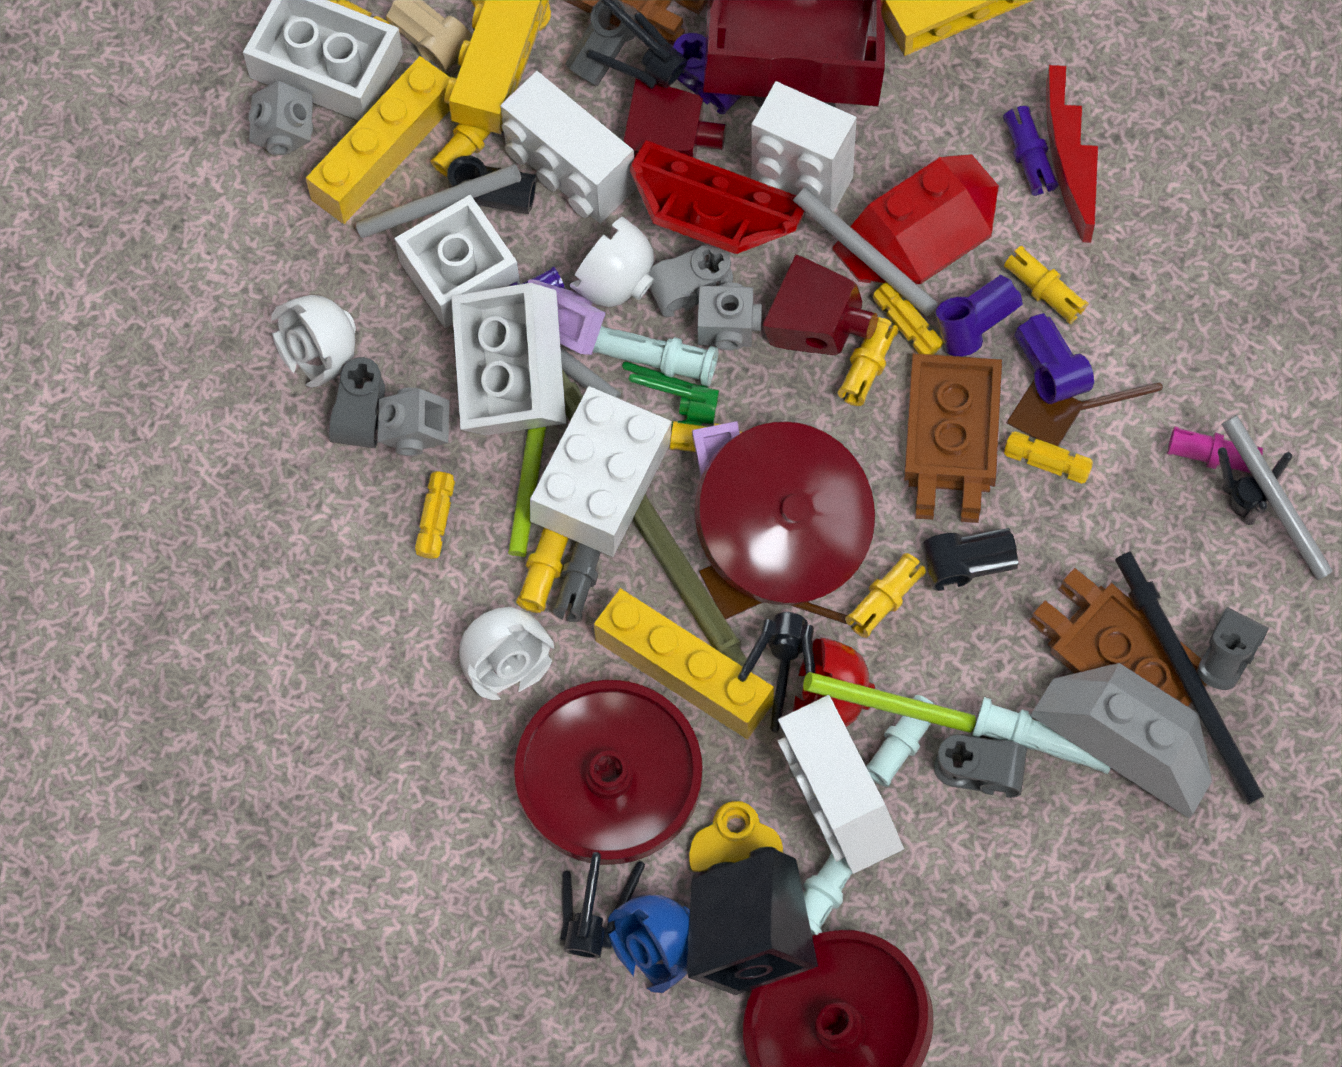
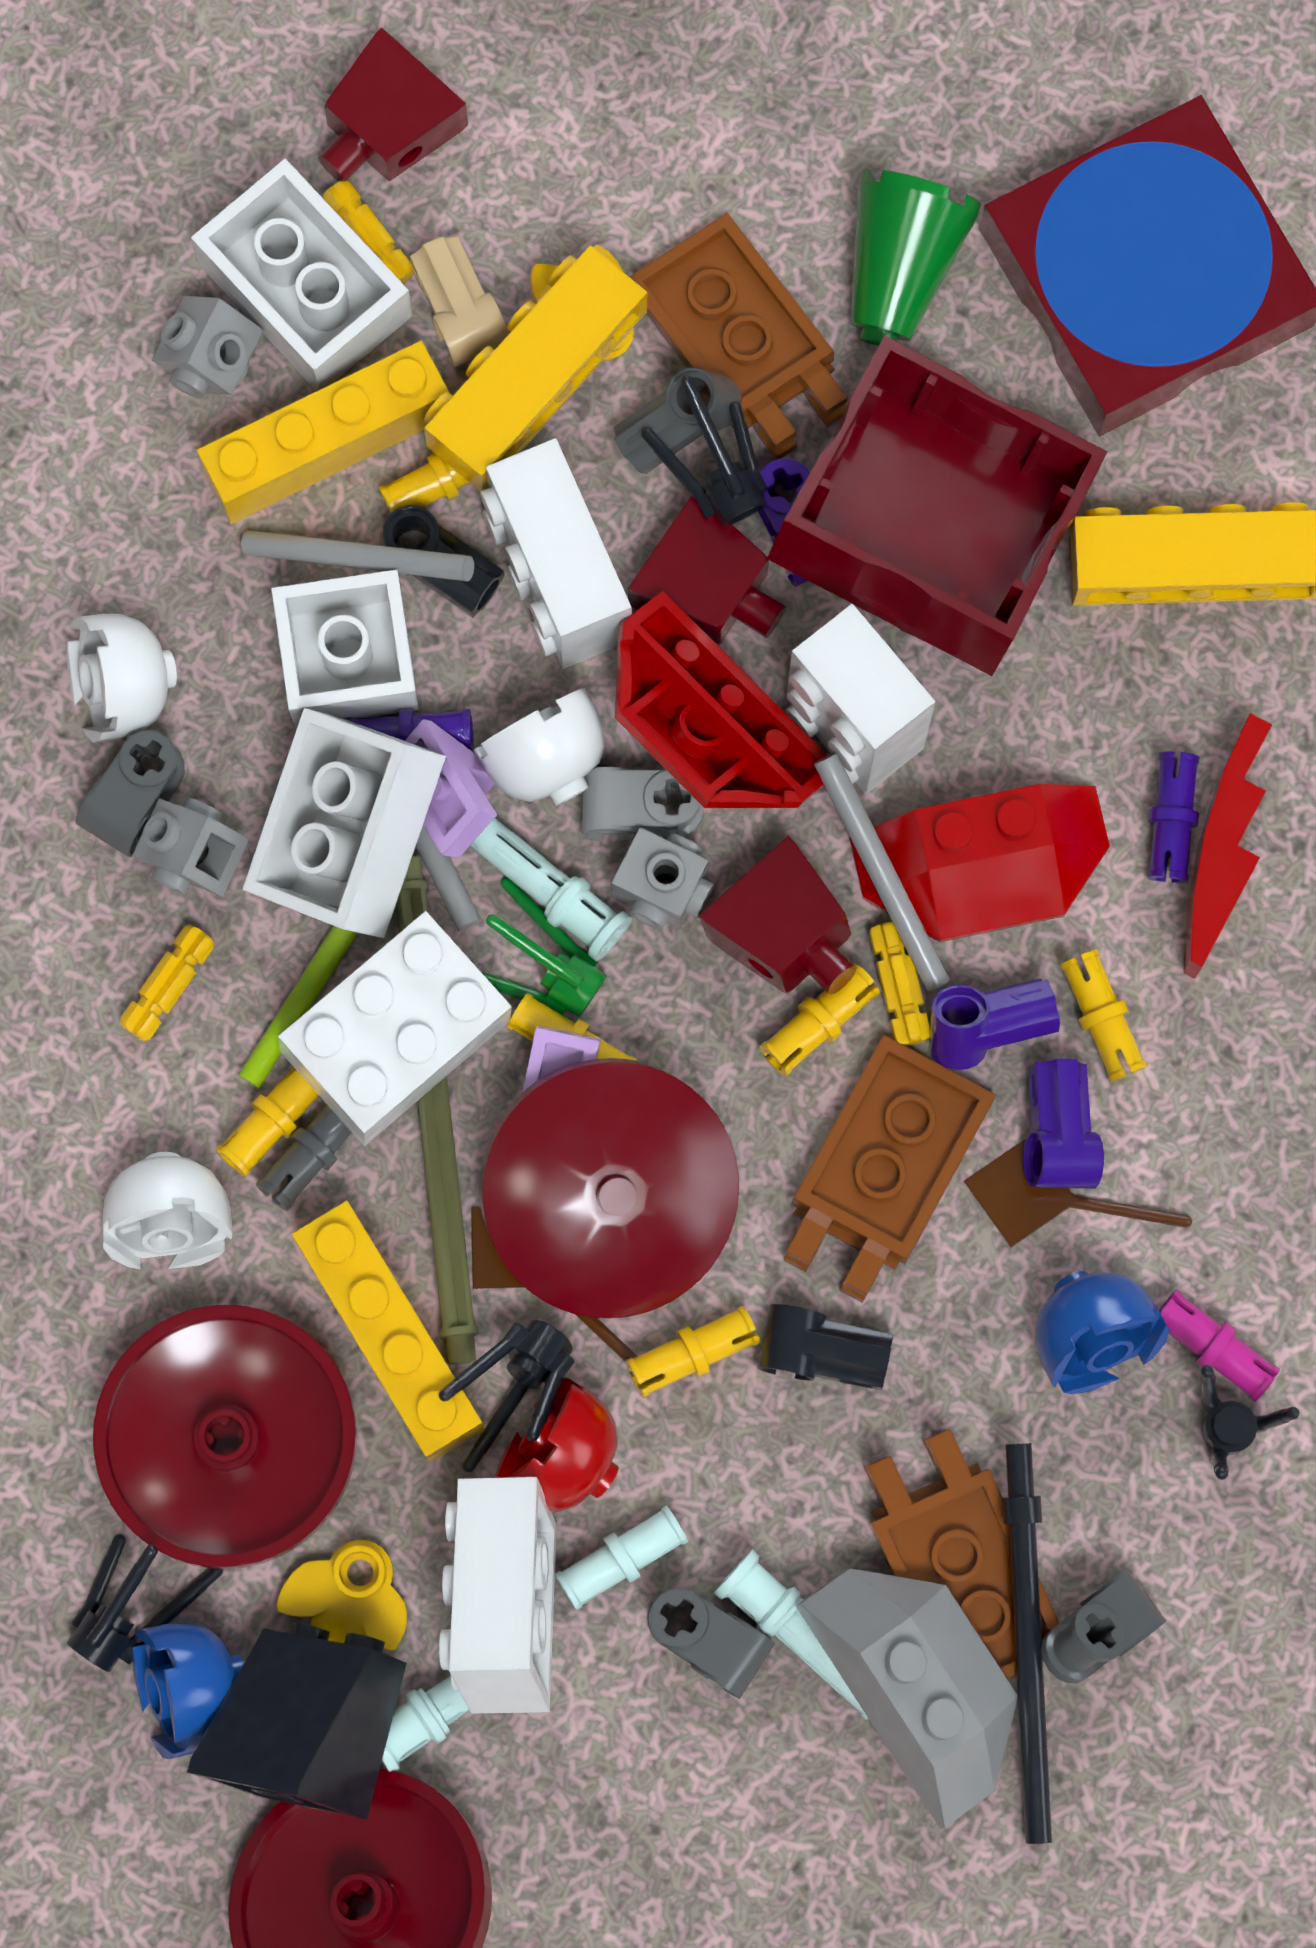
camera: 20 degrees right, 10 degrees up
(889, 702) = (618, 1512): lime bar -> none
(1048, 457) = (994, 1255): yellow axle -> none
(1137, 463) = (1094, 1326): none -> blue cylinder
(1277, 497) = (1260, 1451): light grey bar -> none

